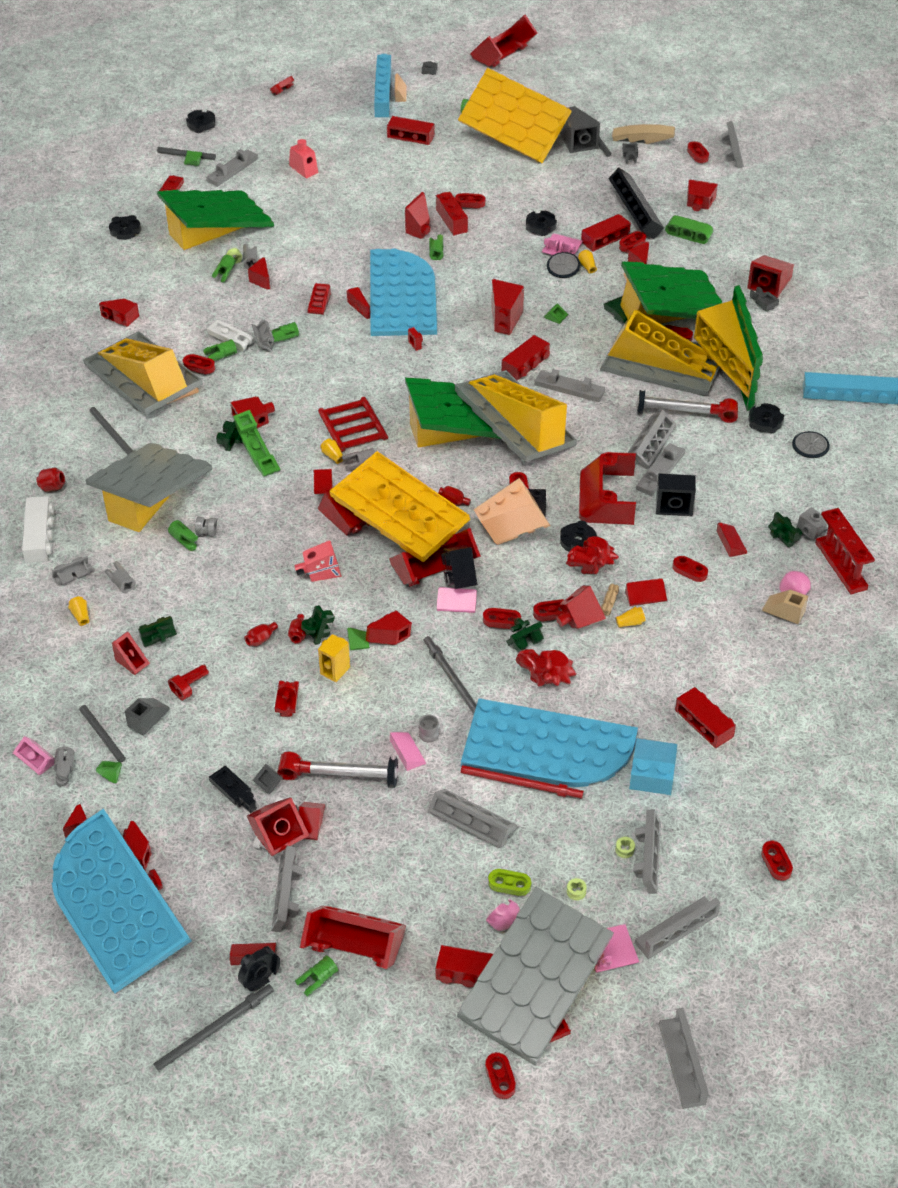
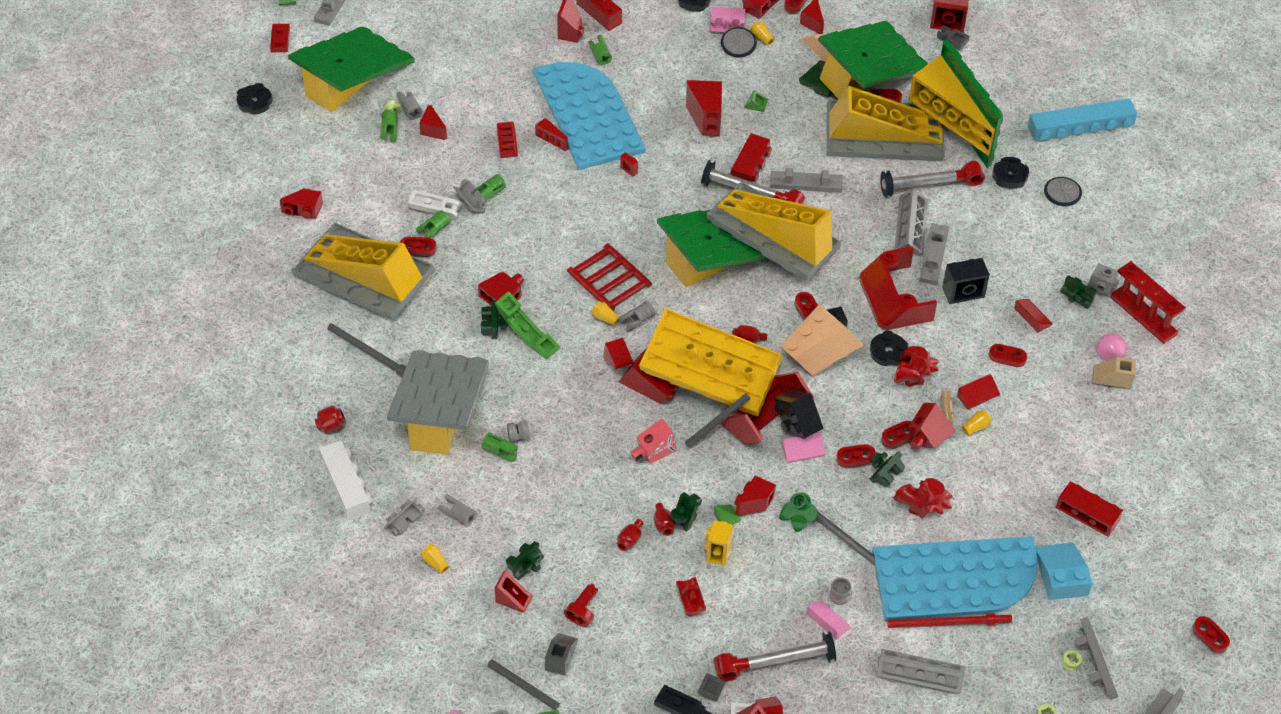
camera: 20 degrees left, 5 degrees up
(385, 556) = (717, 420): none -> dark grey bar
(424, 651) = (799, 514): none -> green plate
(482, 360) = (711, 174): none -> piece

